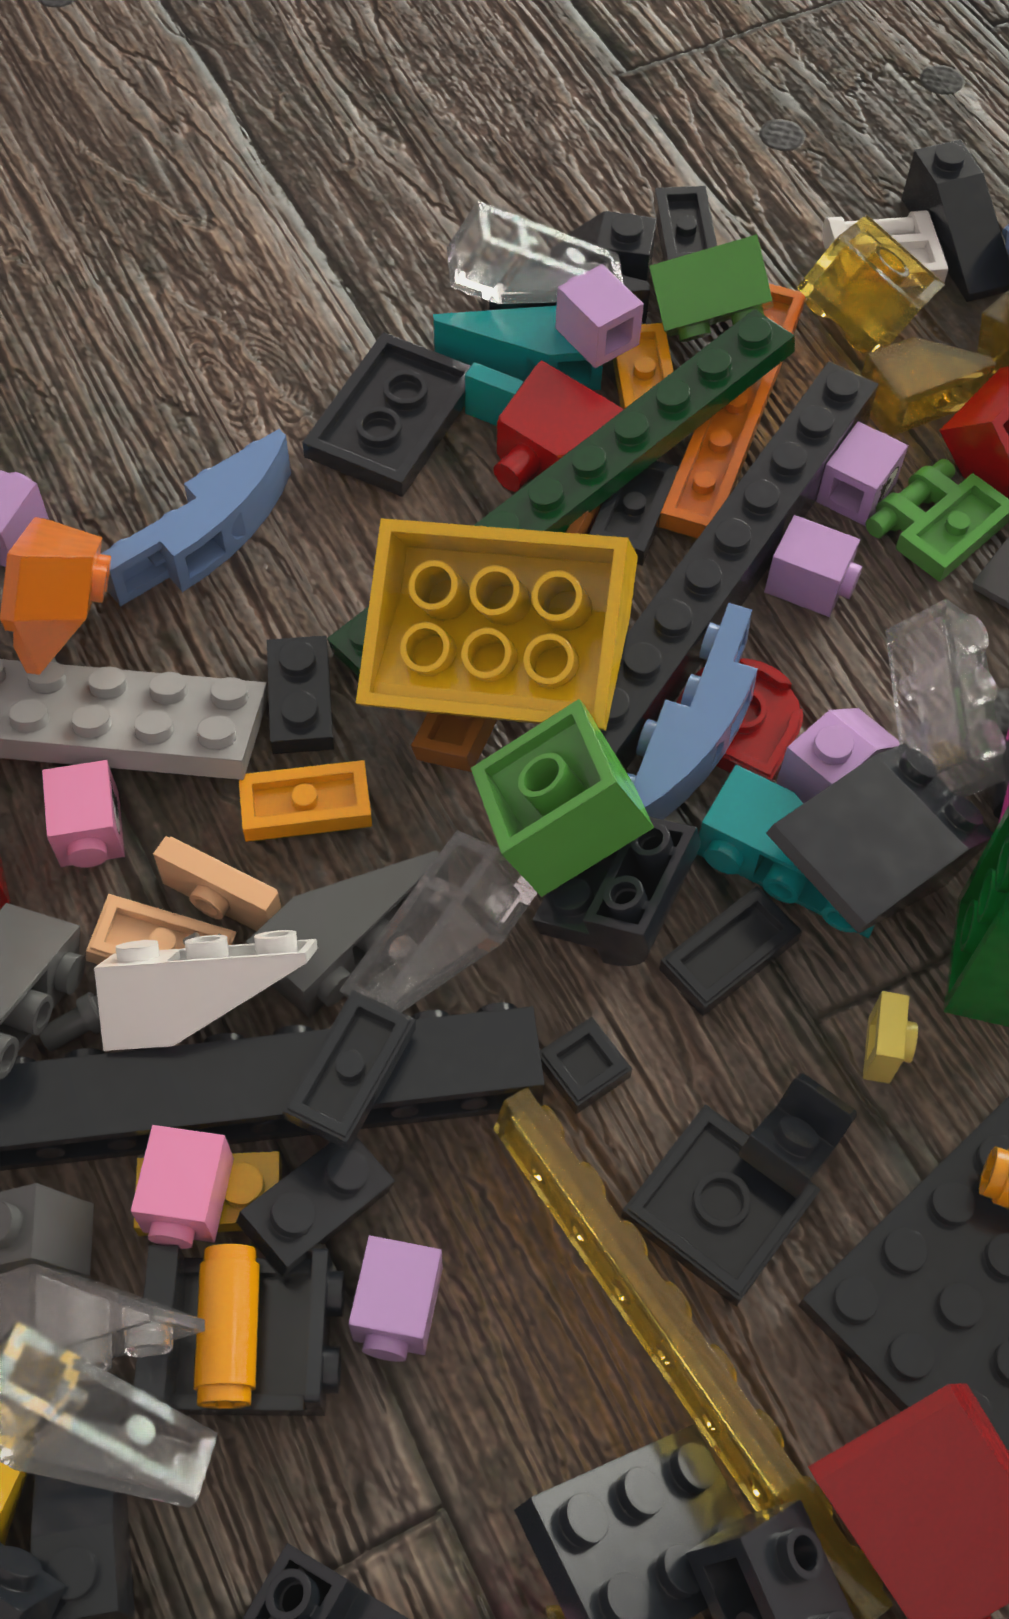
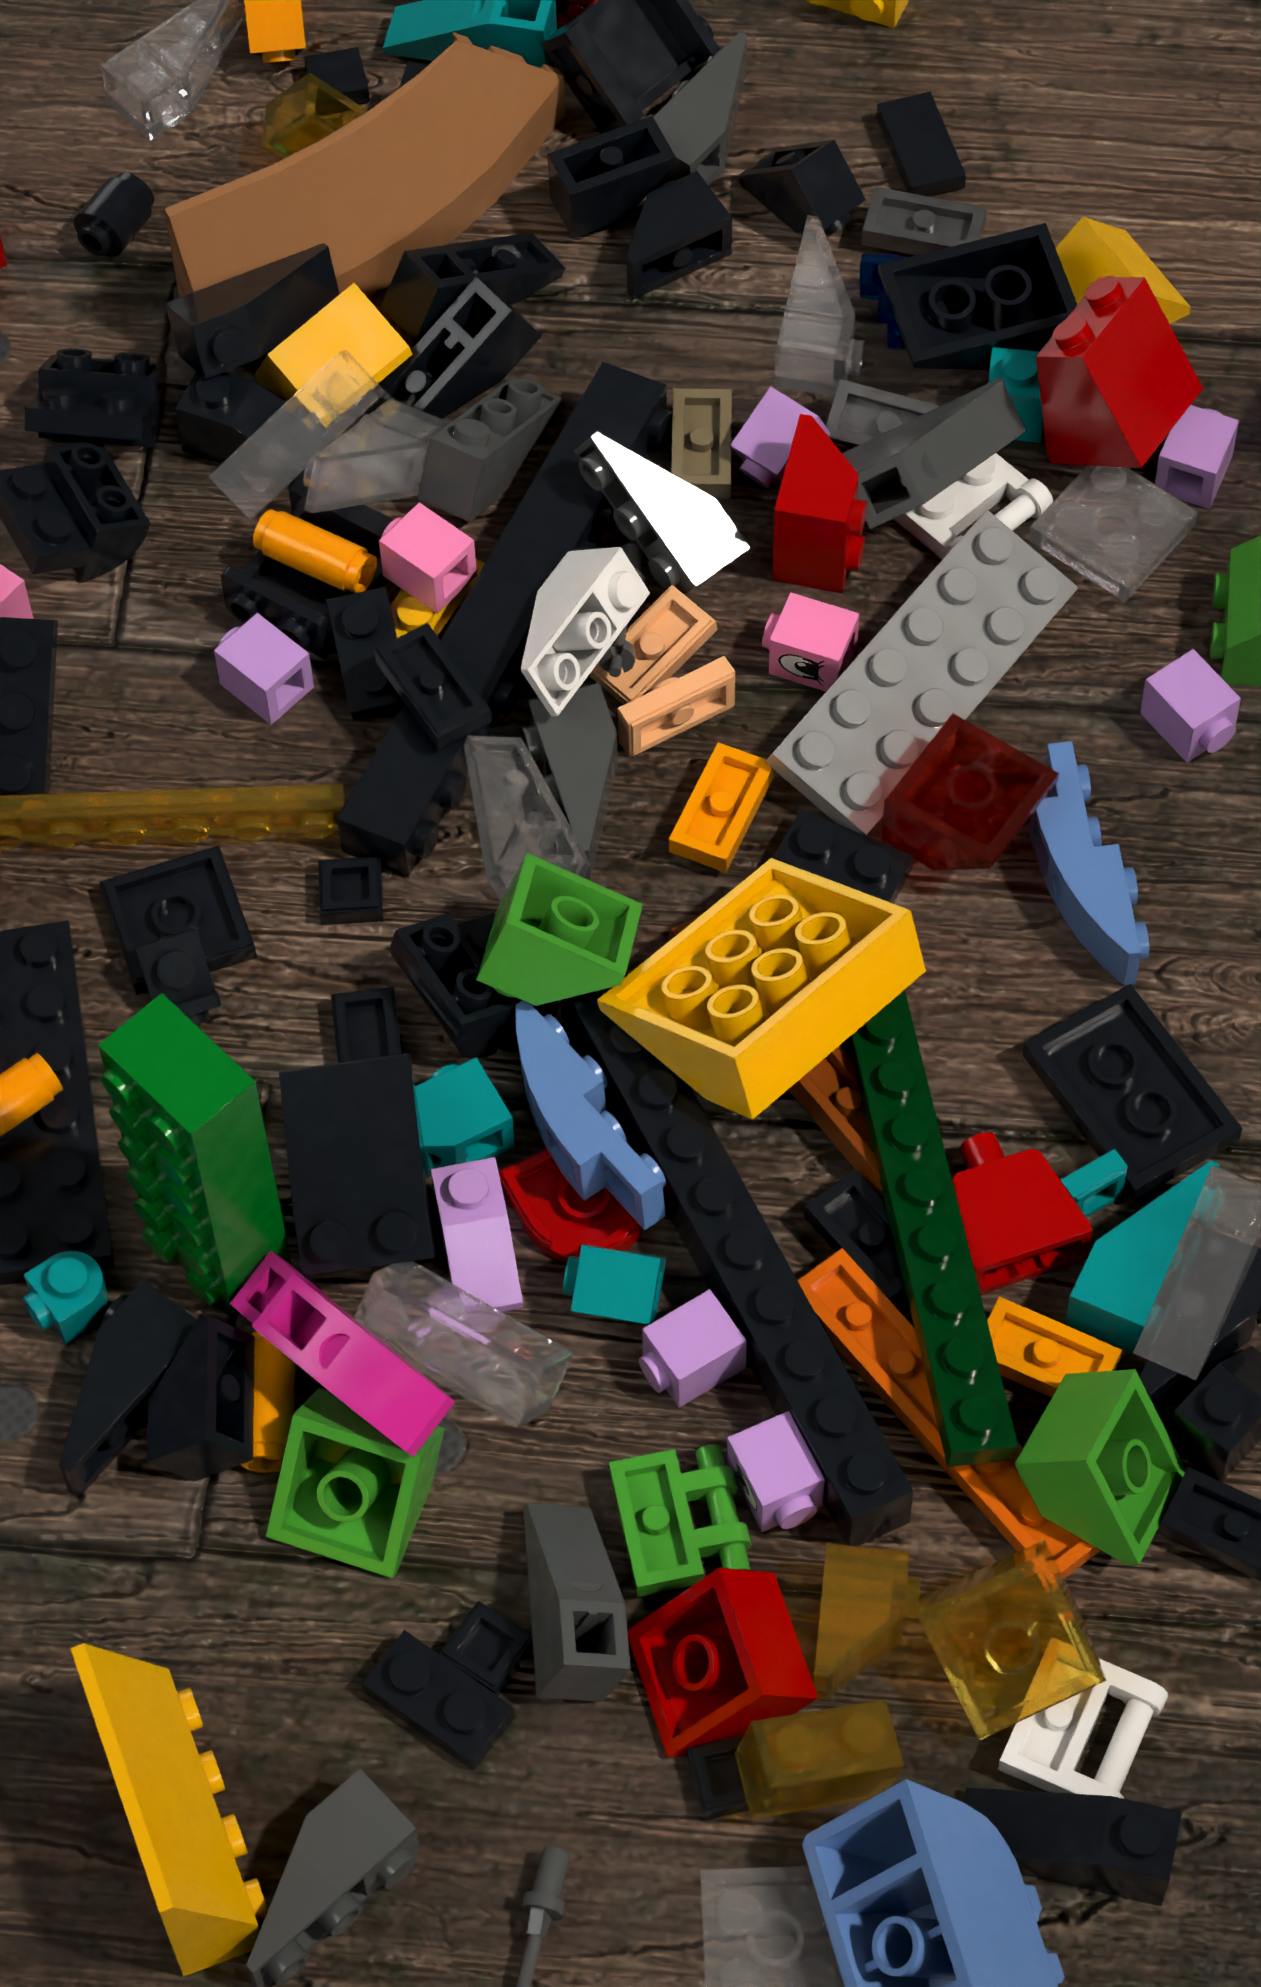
camera: 125 degrees right, 0 degrees up
(50, 588) = (1034, 665): orange wedge -> none
(201, 604) = (964, 799): none -> clear red slope
(598, 315) = (1099, 1285): lavender brick -> none
(807, 631) = (615, 1283): none -> teal brick

